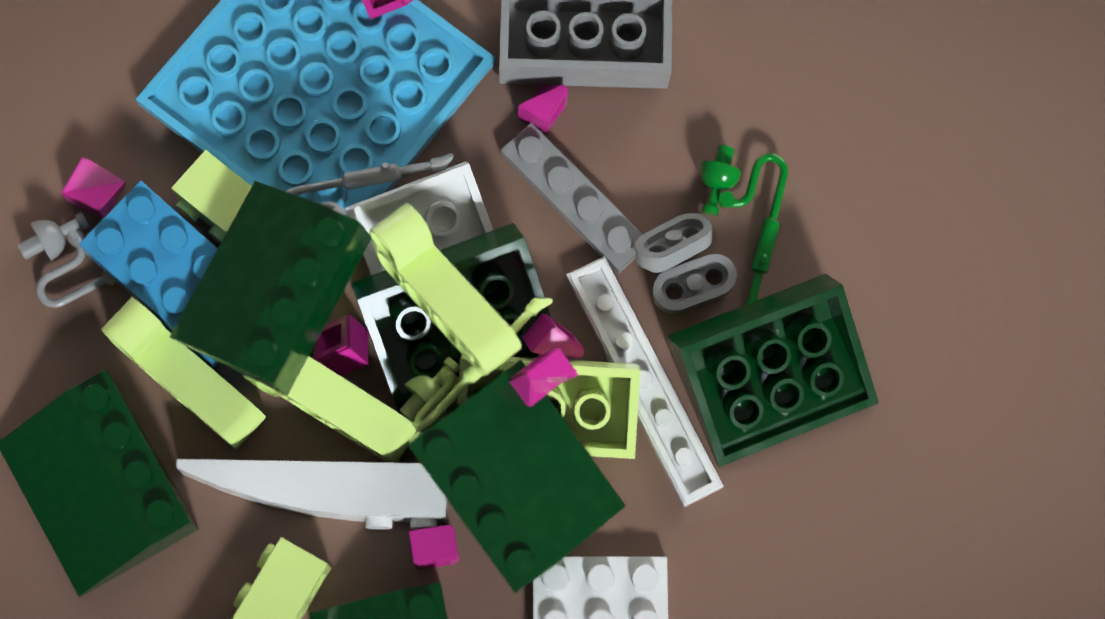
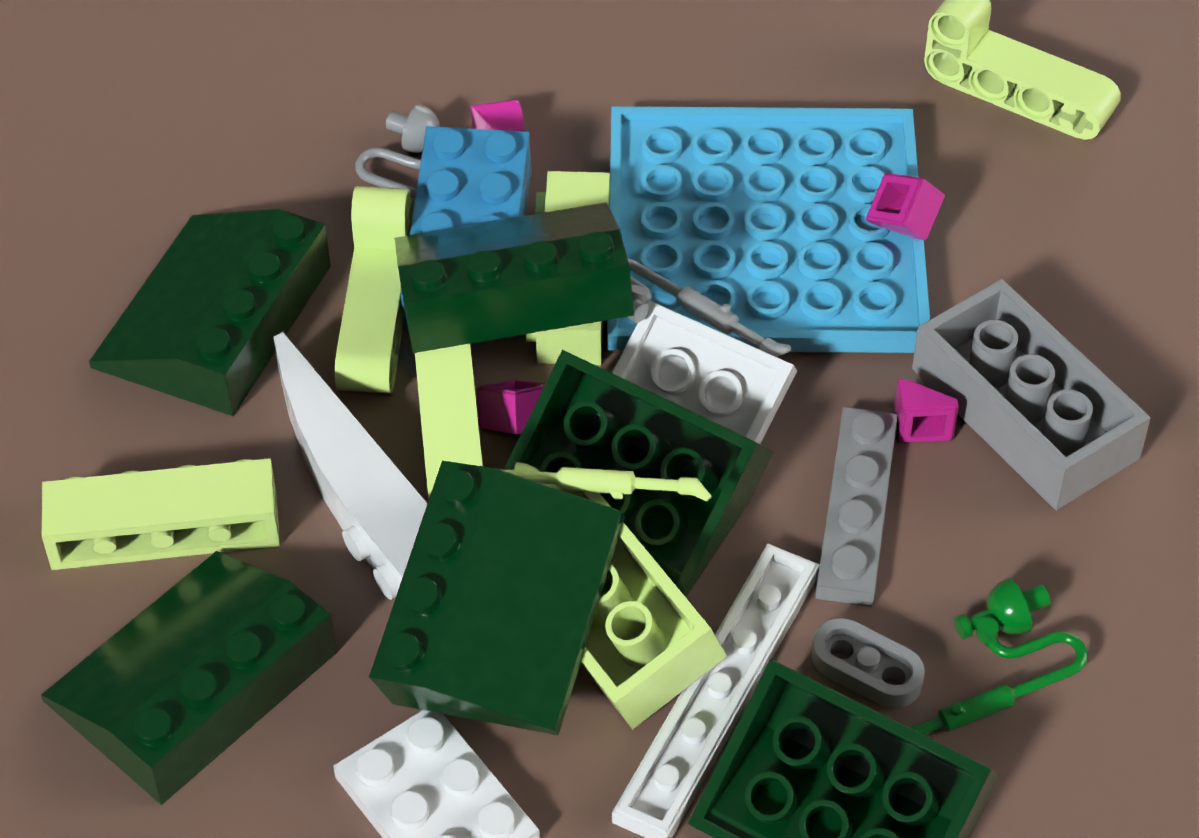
camera: 60 degrees right, 25 degrees down
(434, 547) = (365, 602): dark pink slope -> none
(441, 292) = (628, 381): yellowish green beam -> none
(542, 376) = (617, 531): dark pink slope -> none
(549, 334) = (683, 560): dark pink slope -> none
(673, 242) = (907, 616): light grey plate -> none

